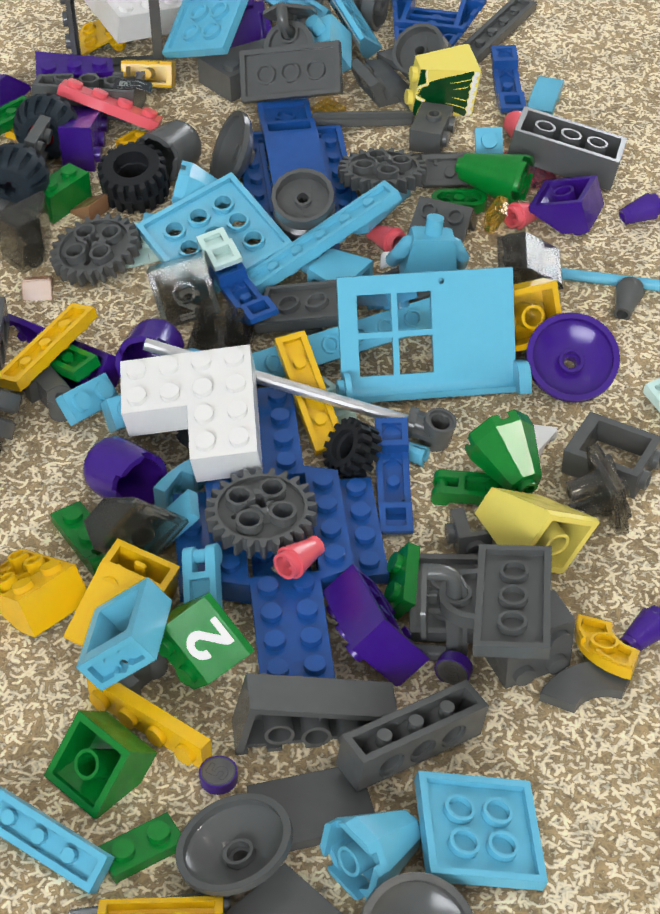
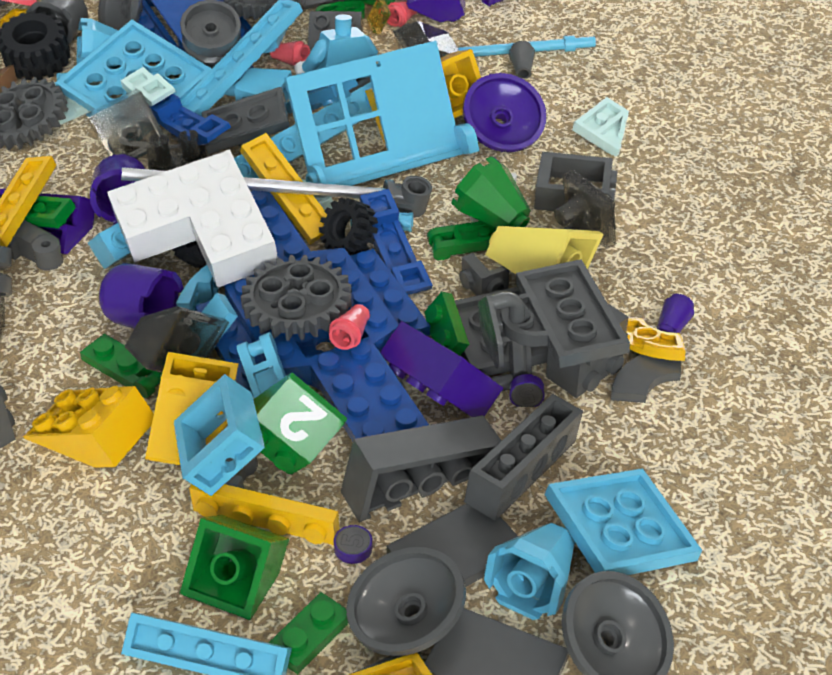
camera: 20 degrees left, 0 degrees up
(86, 399) = (72, 241): medium azure plate -> none

